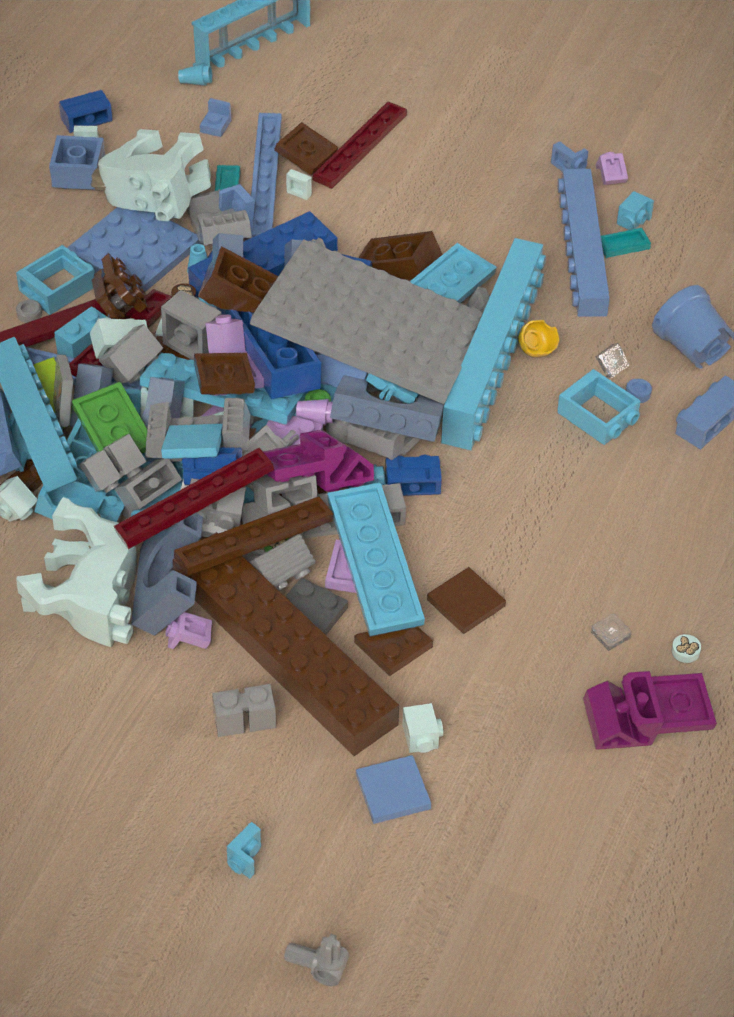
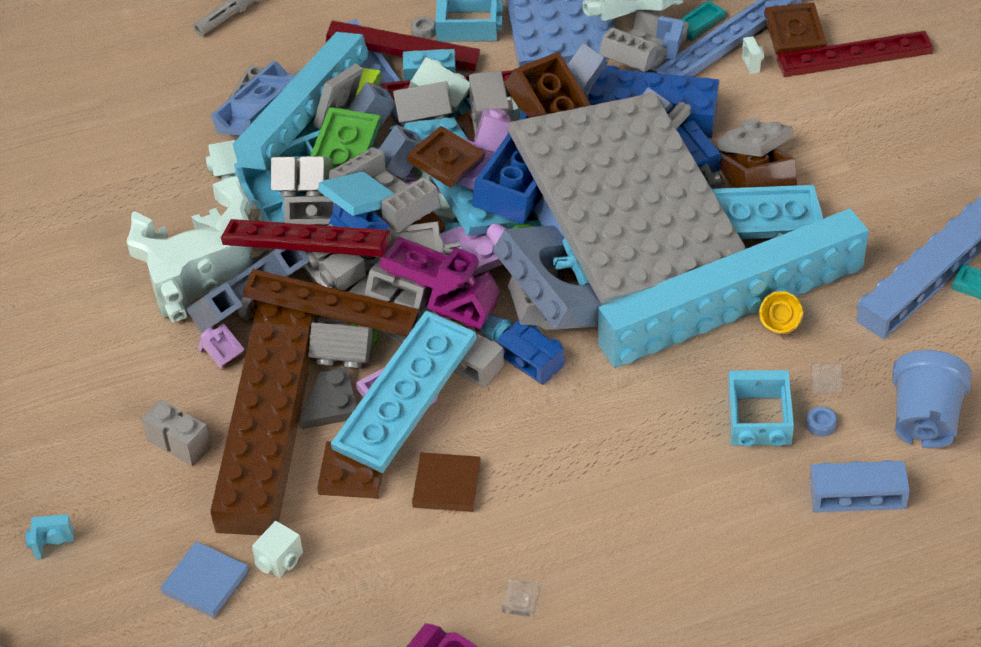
camera: 50 degrees right, 0 degrees up
(117, 287) = (491, 47): reddish brown piece -> none
(377, 237) = (755, 138): none -> light grey plate

